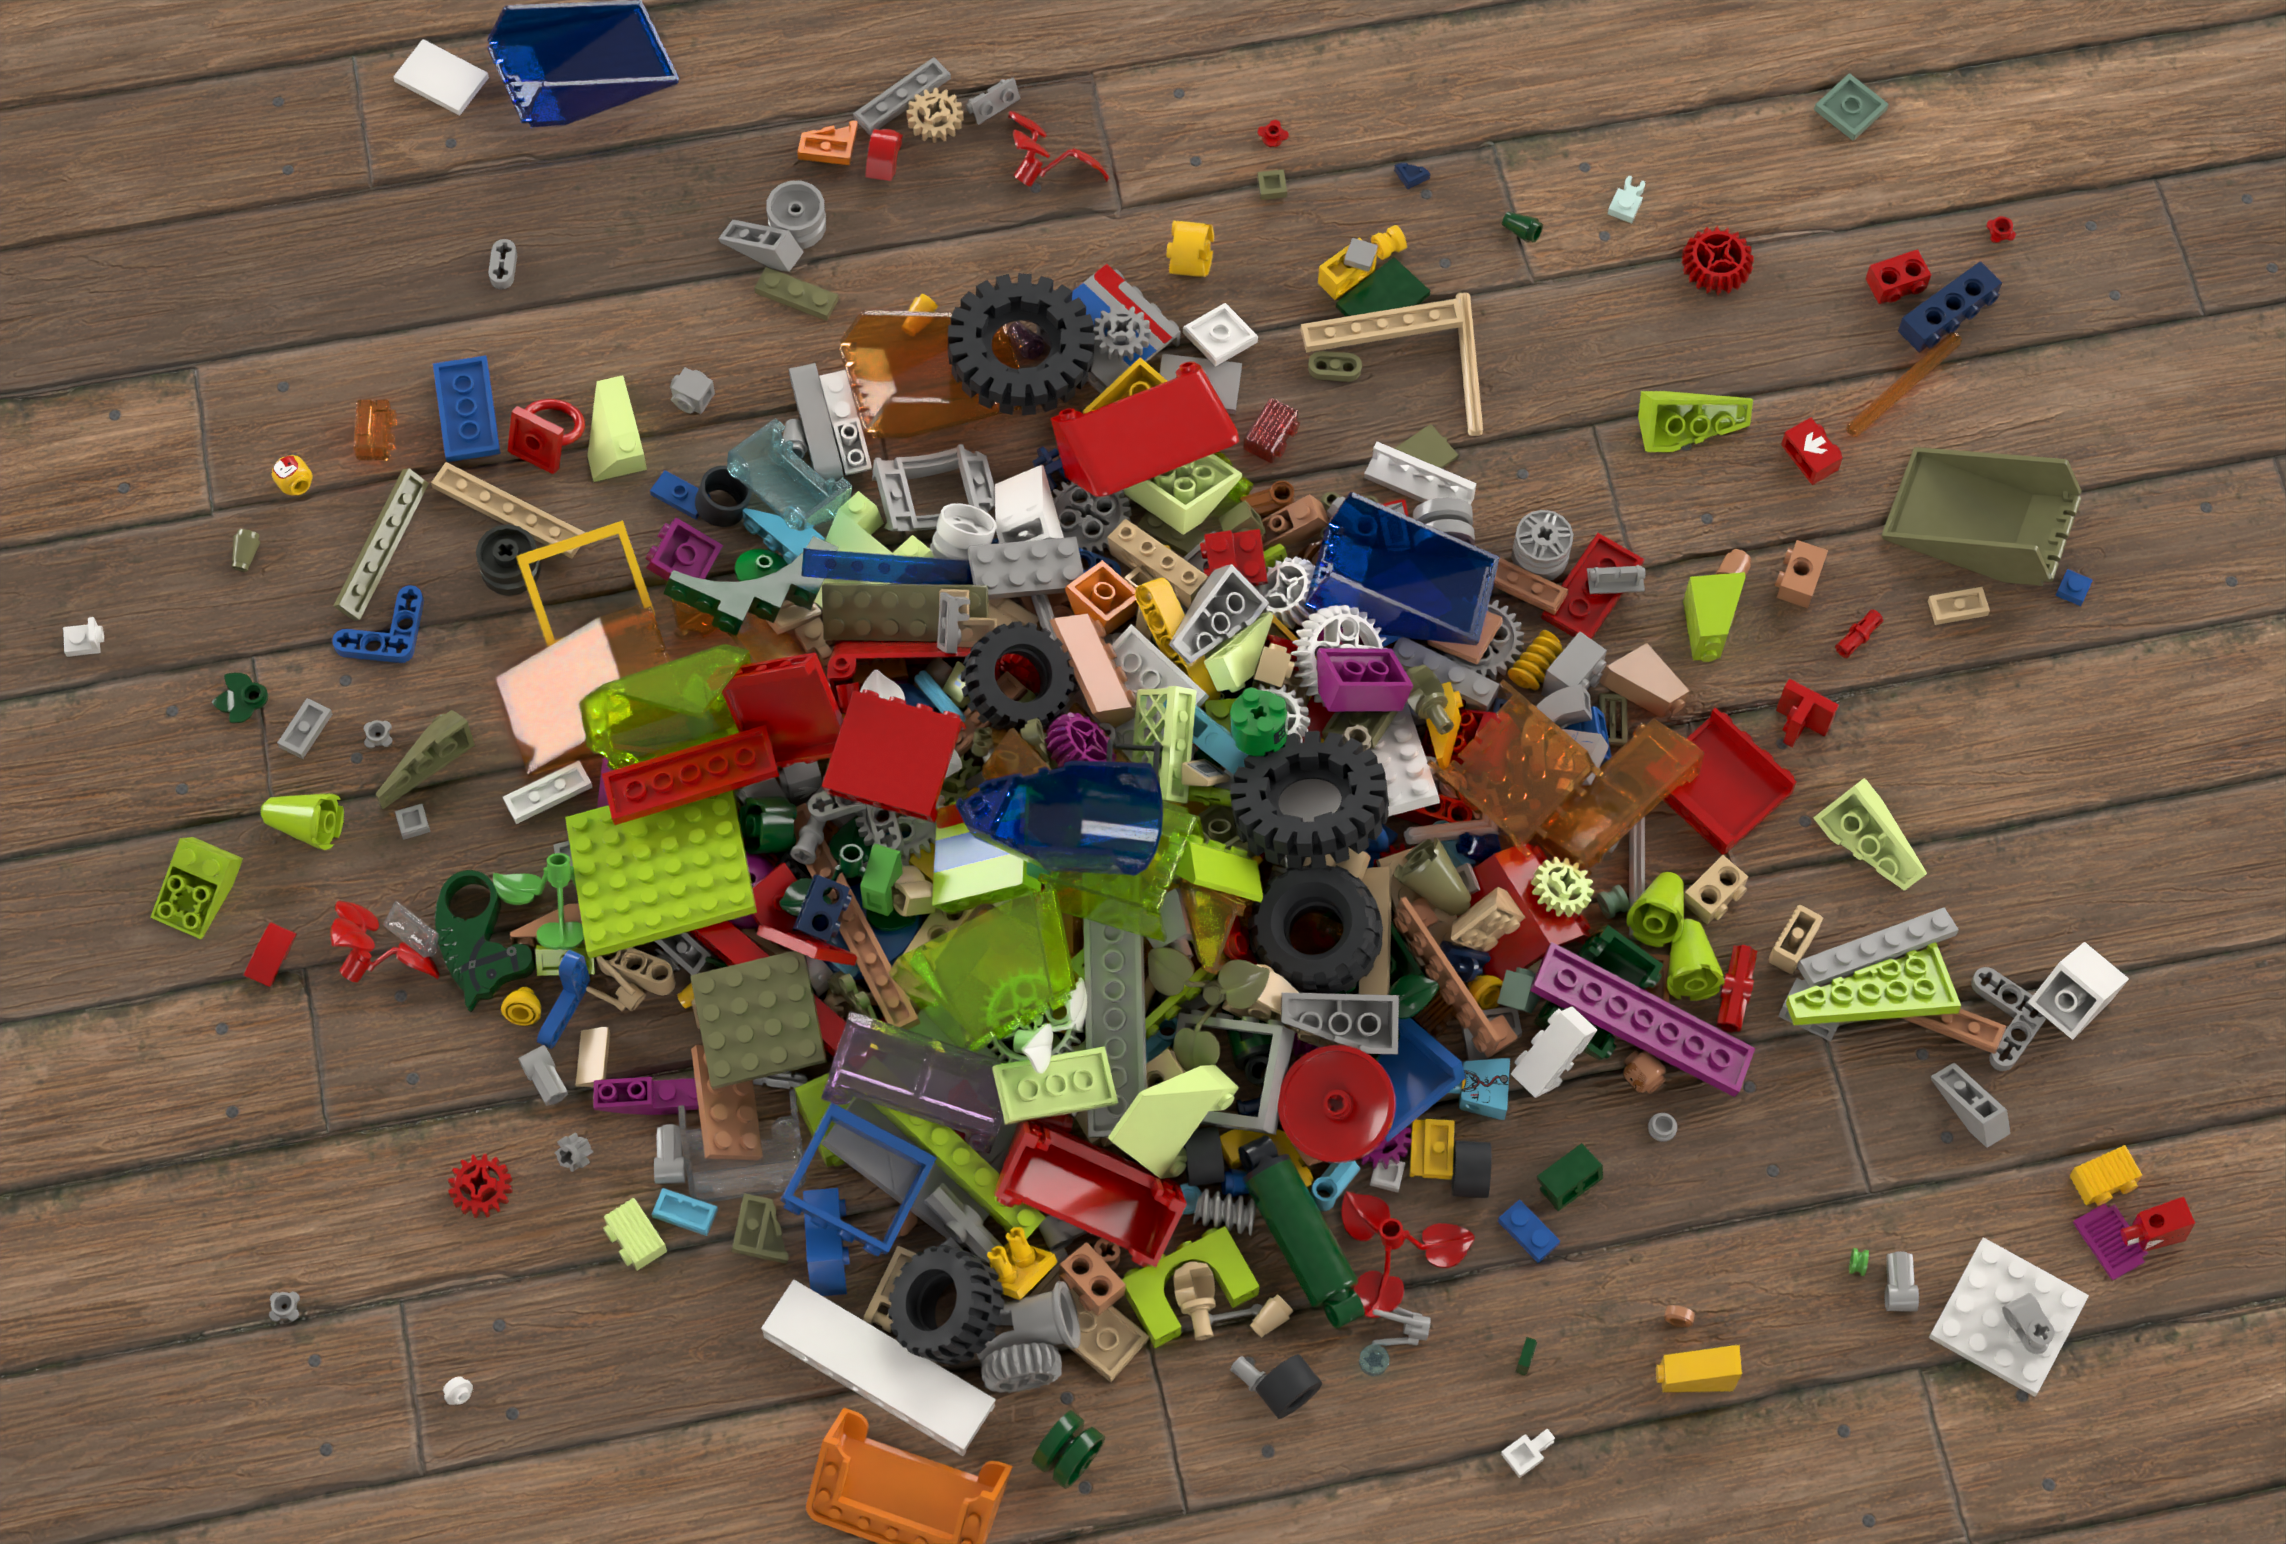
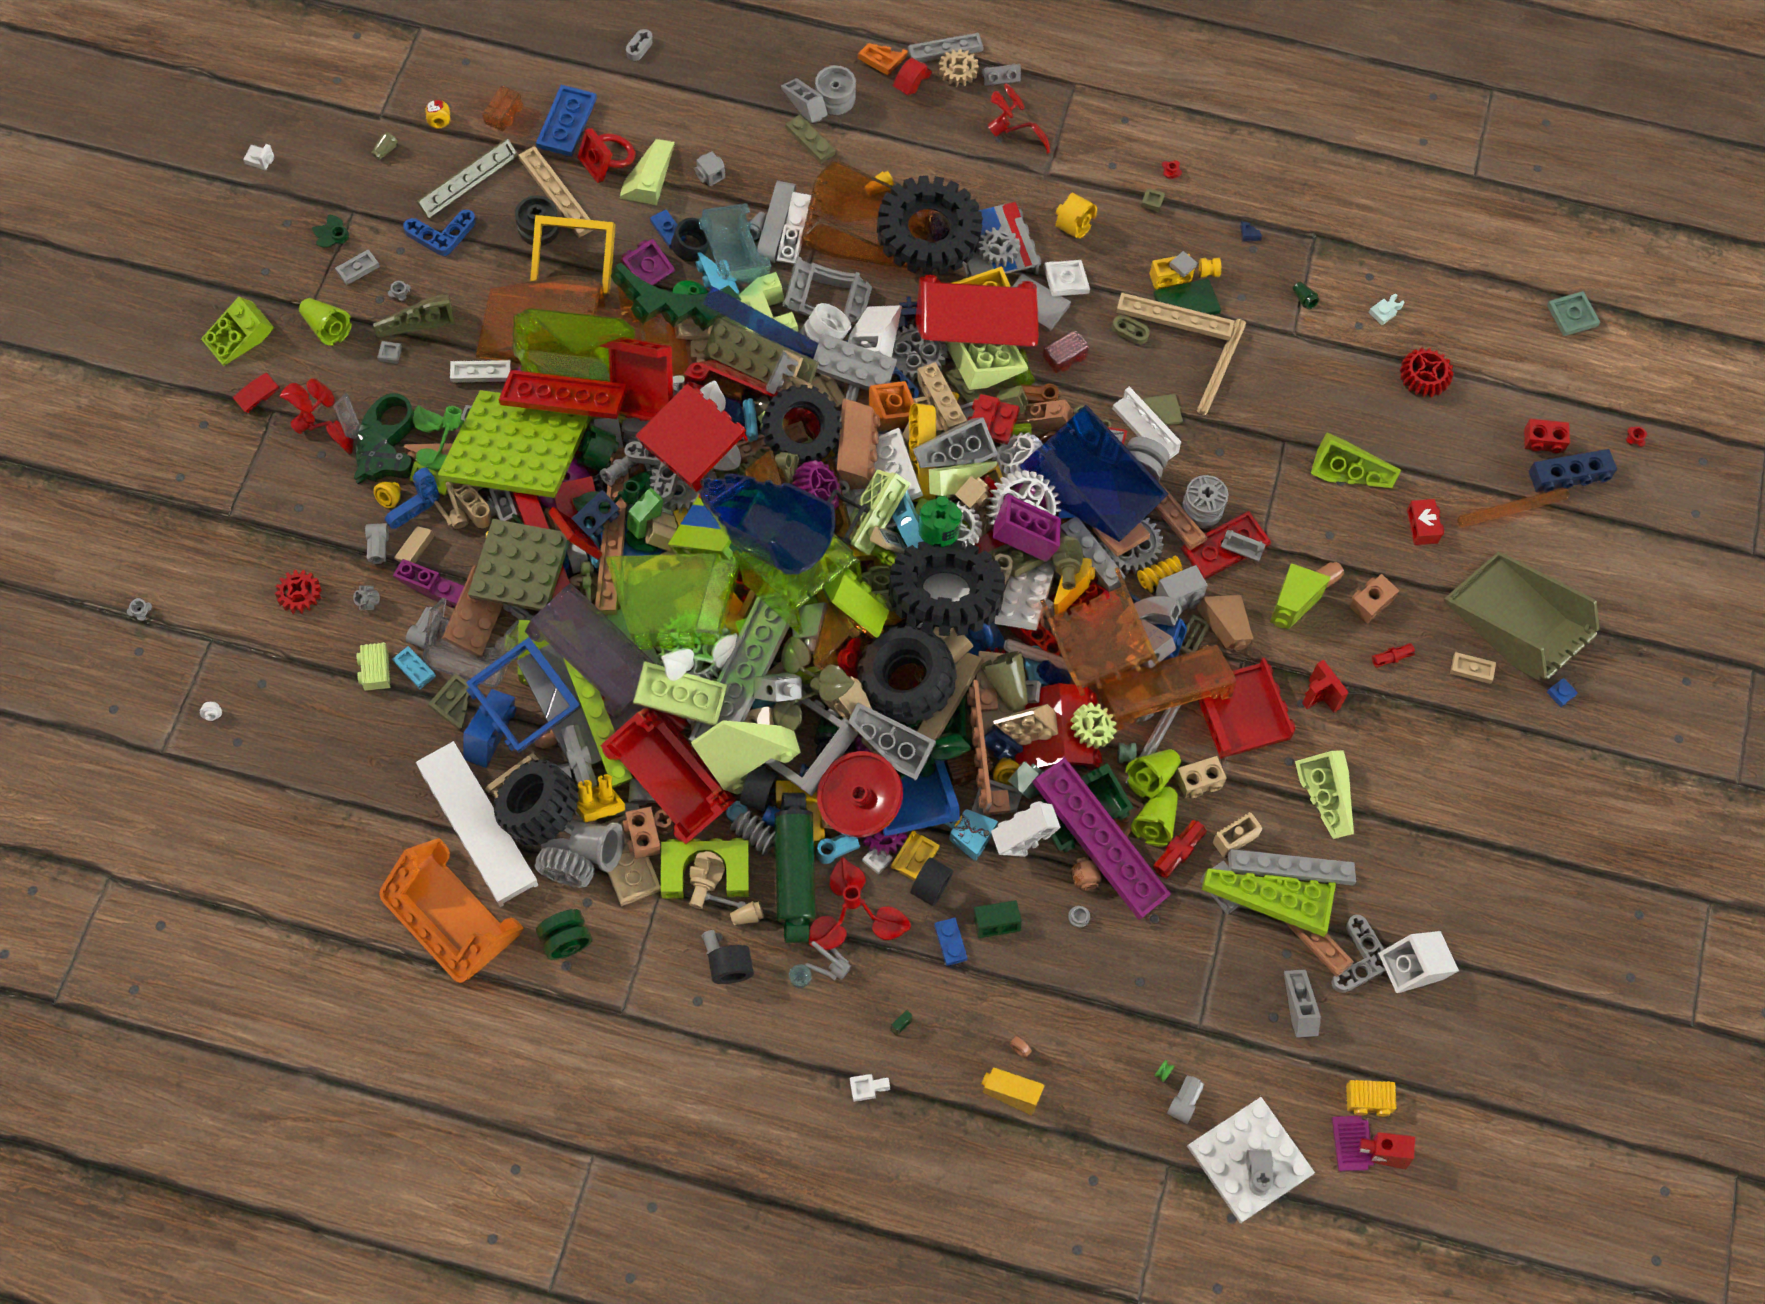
camera: 25 degrees right, 0 degrees up
(1181, 1015) = (784, 685): none -> light grey torso

